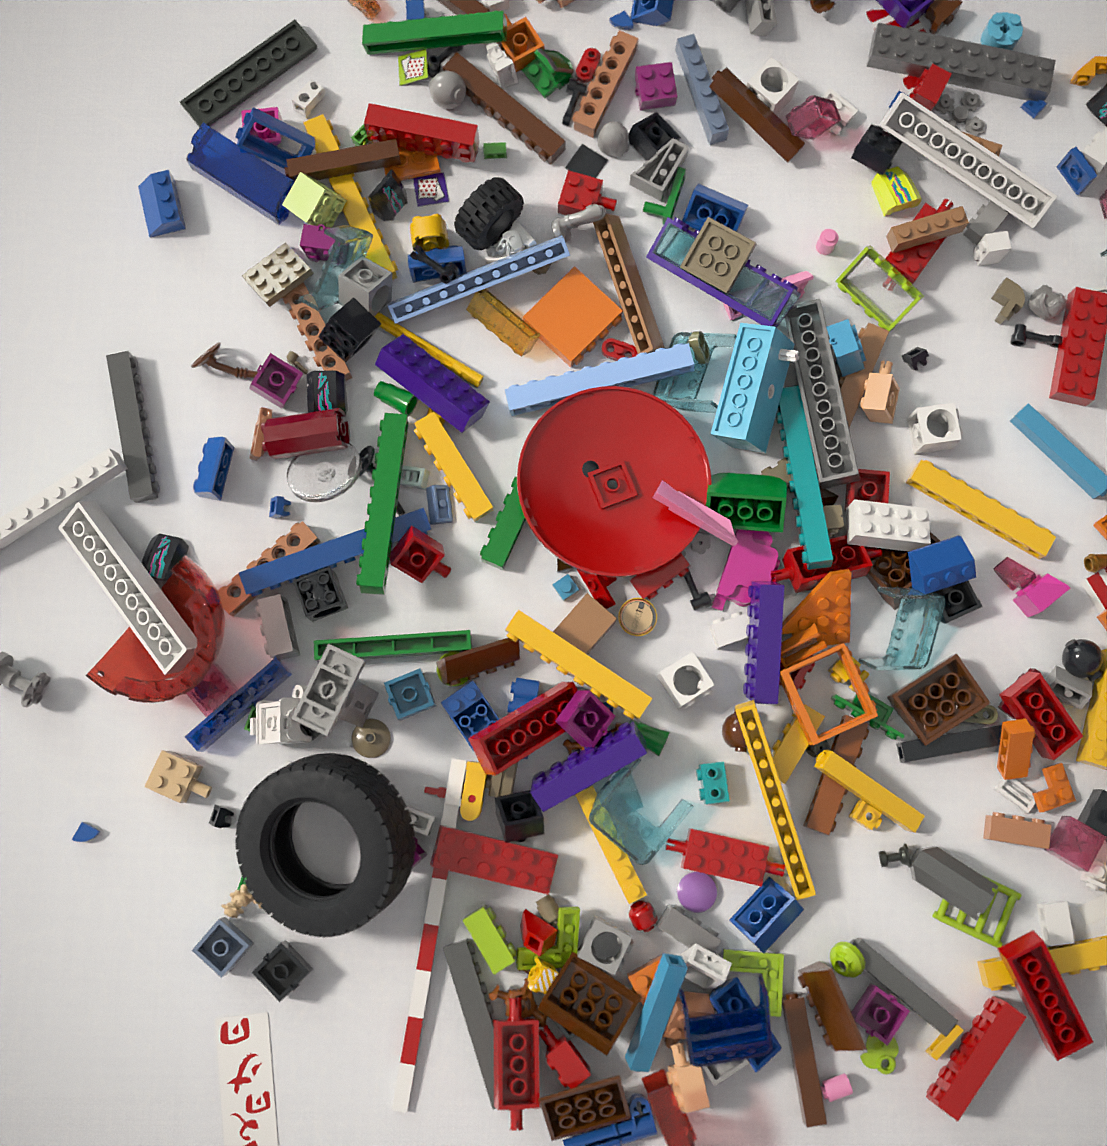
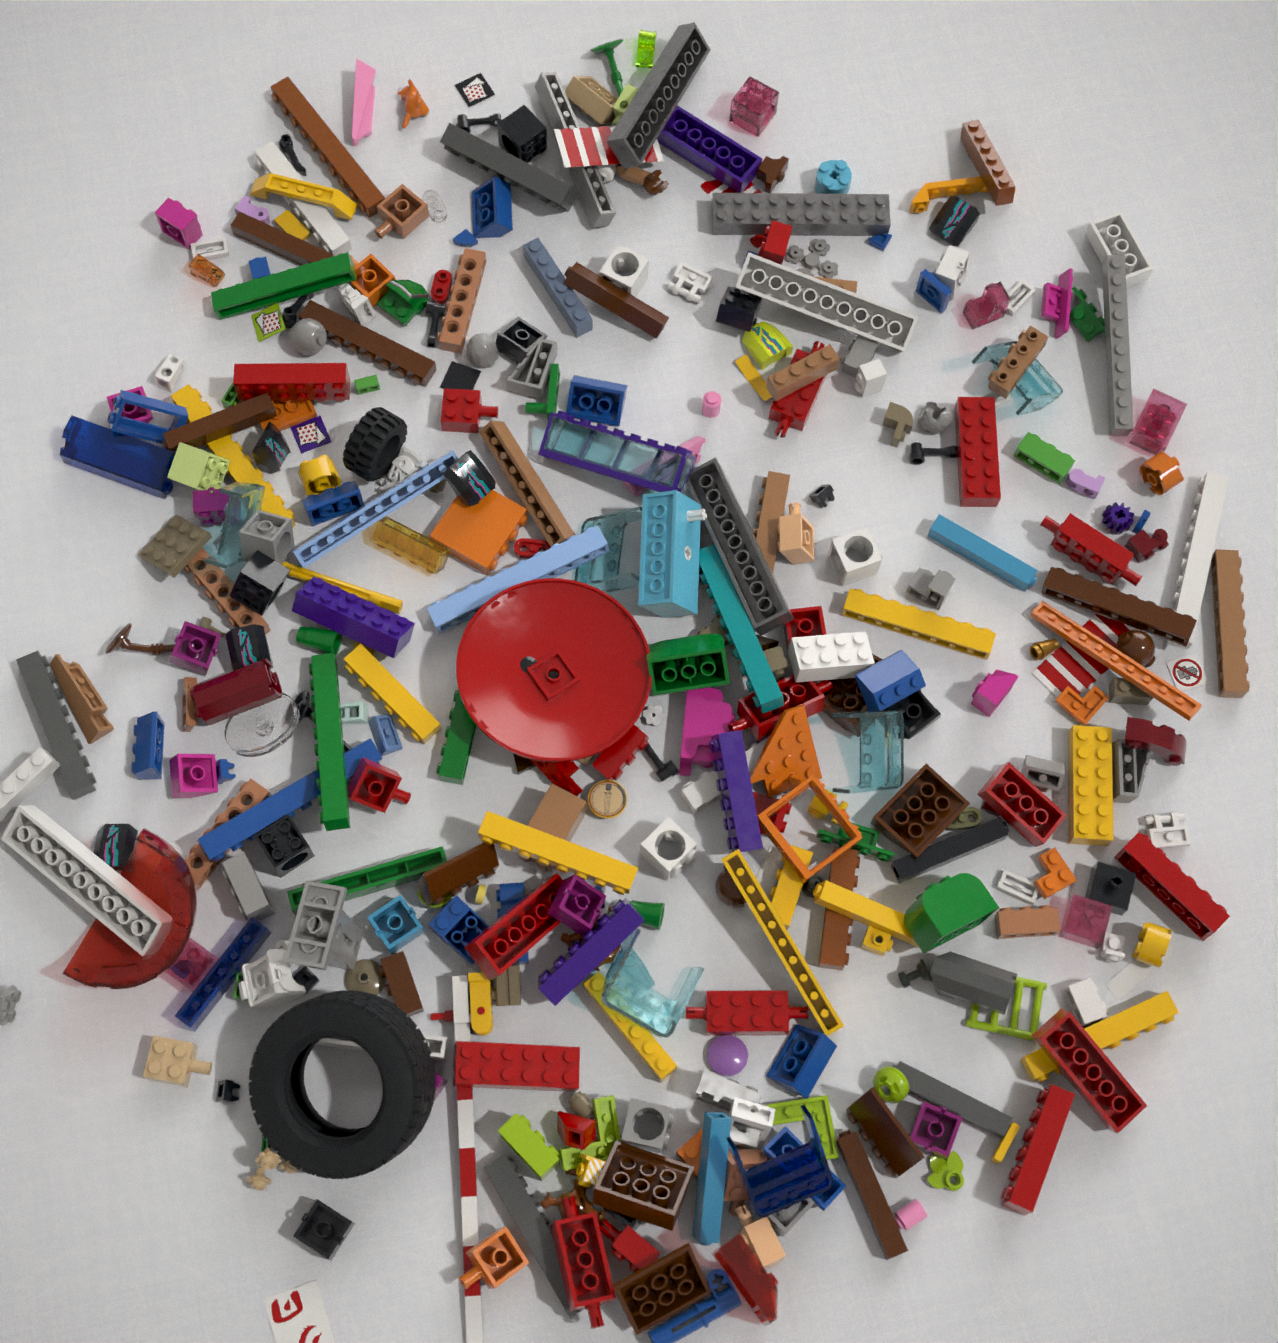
camera: 15 degrees left, 10 degrees down
(85, 833) = (89, 1141): blue tile -> none
(161, 204) = (41, 503): blue slope -> none
(162, 406) = (82, 699): none -> medium nougat wedge
(222, 946) = (257, 1220): sand blue brick -> none
(249, 74) = (105, 362): pearl dark grey plate -> none
(250, 505) = (193, 775): none -> dark pink slope
(402, 753) = (401, 983): none -> reddish brown brick
(434, 1038) = (494, 1259): none -> orange brick
(447, 272) = (346, 508): black brick -> none
(496, 682) = (480, 894): none -> light yellow tile
(519, 816) = (532, 1017): black brick -> none
(564, 225) = (474, 425): light grey piece -> none
(565, 587) = (529, 787): dark azure plate -> none
(573, 269) = (469, 479): none -> black slope
(642, 916) = (678, 1090): red head -> none
(655, 86) = (511, 293): magenta brick -> none
(696, 513) = (640, 682): bright pink wedge -> none
(700, 347) = (610, 527): olive plate -> none
(713, 783) = (719, 943): teal brick -> none
(718, 255) = (608, 437): dark tan plate -> none
(802, 646) = (774, 788): orange window -> none
(813, 117) = (670, 292): clear pink brick -> none
(846, 347) = (751, 497): dark azure brick -> none
(874, 222) = (753, 377): none -> yellow sticker
(879, 288) = (771, 437): clear window -> none
(944, 806) = (948, 910): none -> green brick
(1002, 477) = (931, 588): none -> light grey brick
(1014, 574) = (965, 678): clear pink slope -> none
(1015, 749) = (1004, 841): orange brick -> none
(1083, 659) = (1049, 742): black brick -> none

